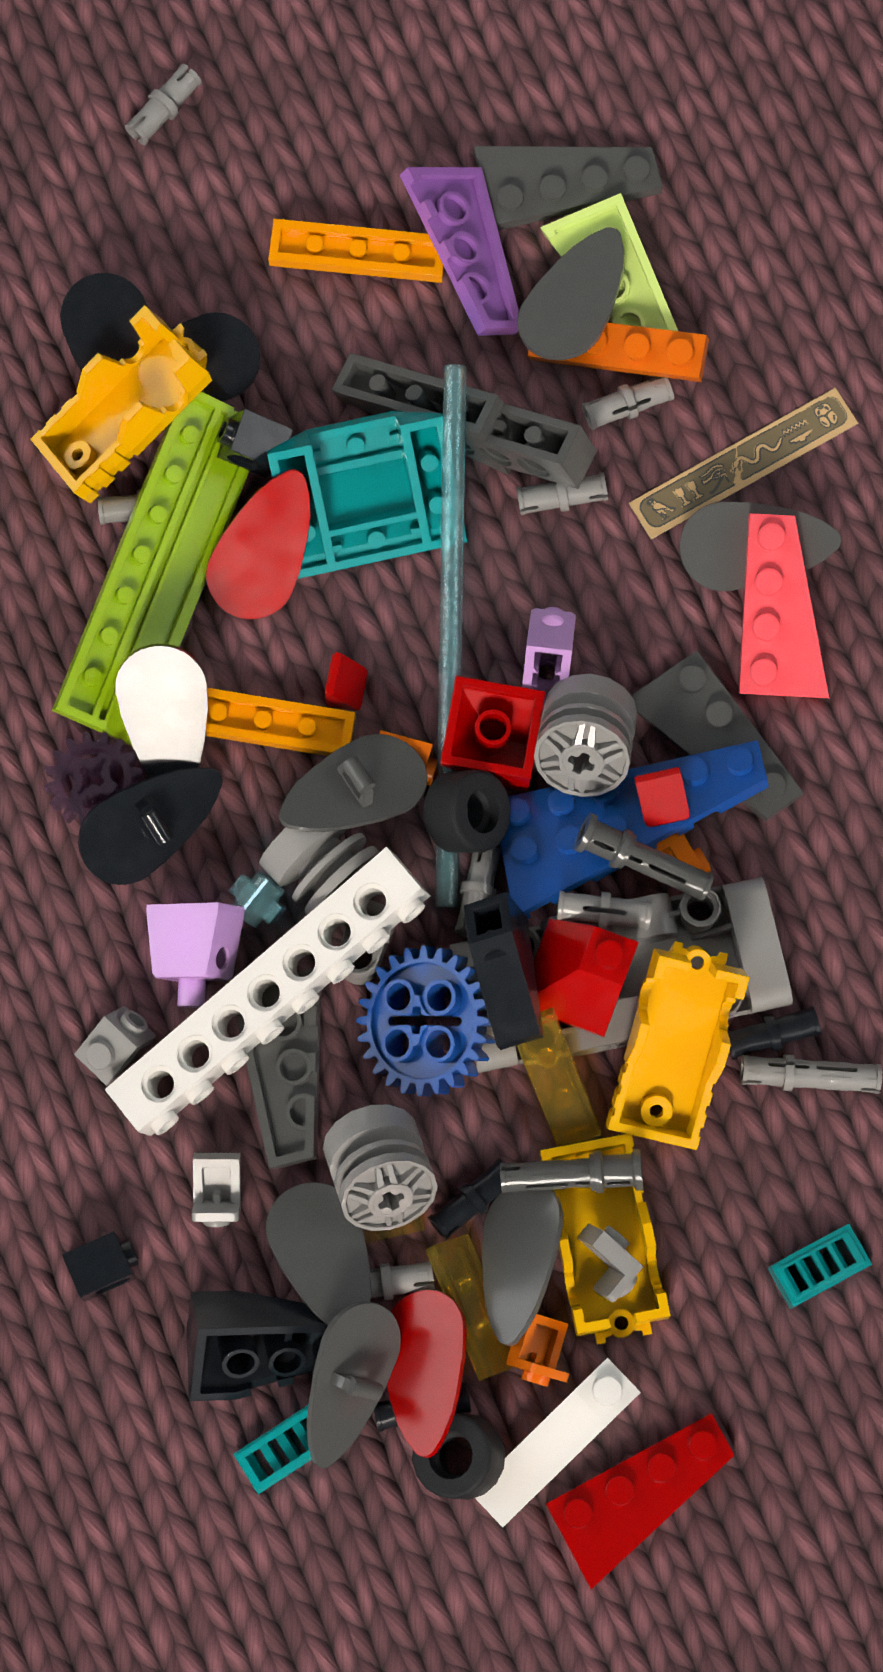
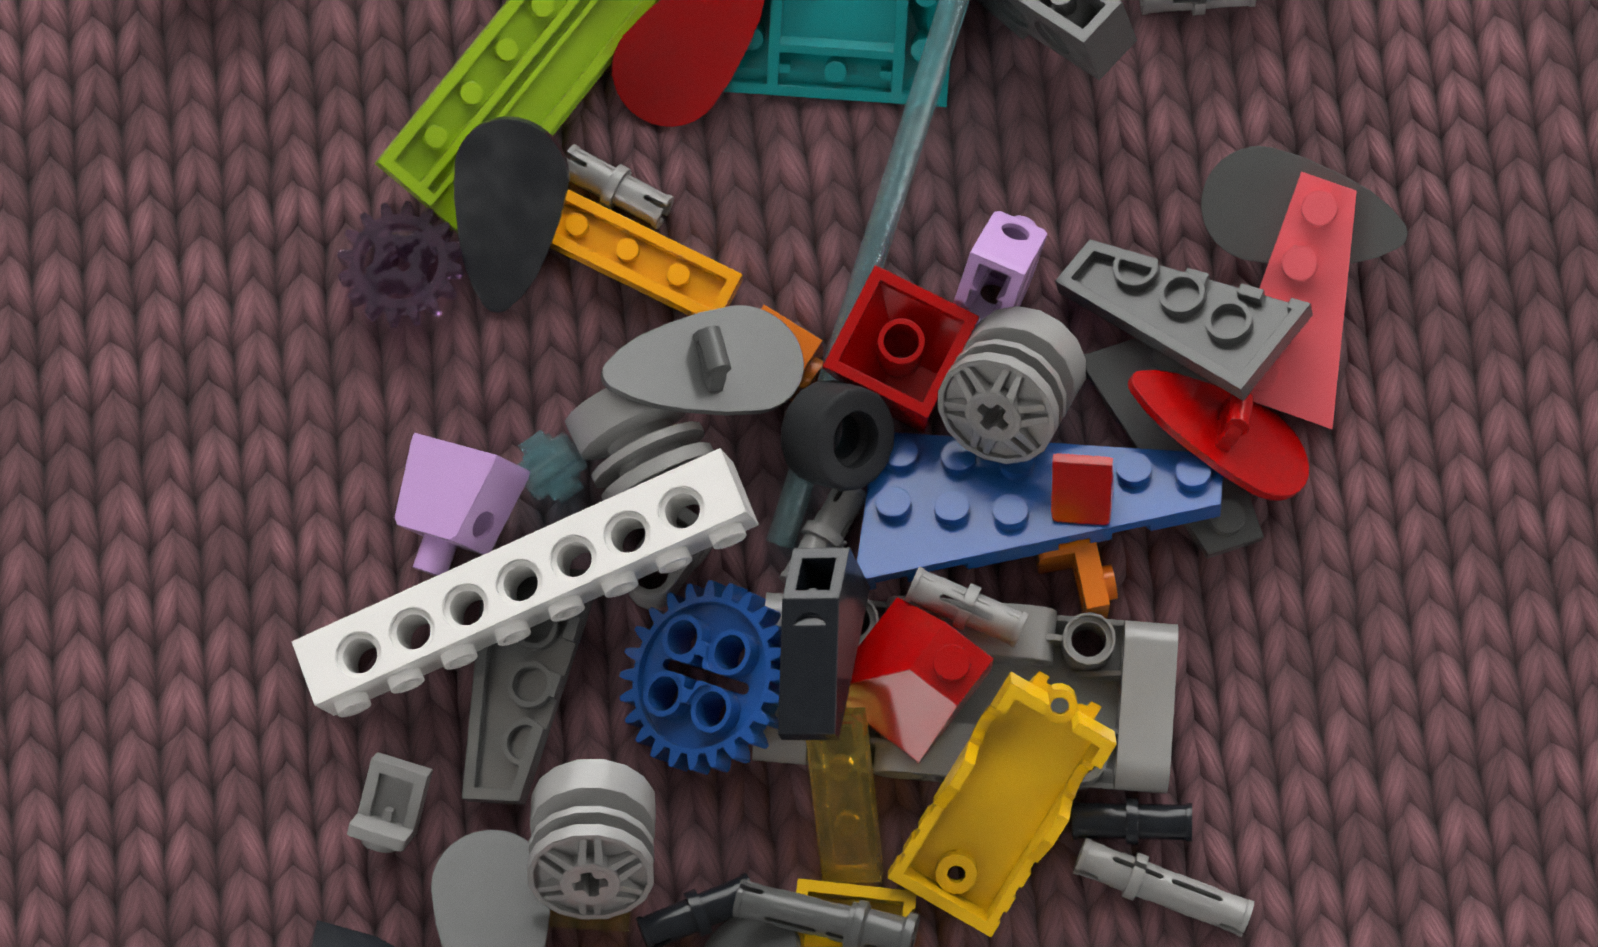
camera: 20 degrees right, 0 degrees up
(101, 1265) = (222, 854): black brick -> none
(114, 1043) = (325, 589): light grey bracket -> none
(146, 823) = (446, 334): black shield -> none
(241, 675) = (618, 187): none -> light grey pin
(345, 683) = (742, 235): red slope -> none
(556, 495) = (1073, 82): light grey pin -> none
(623, 849) = (1012, 539): dark grey pin -> none
(698, 646) = (1198, 322): none -> wing
(743, 463) = (1318, 108): sticker -> none
(753, 723) = (1226, 433): none -> red shield

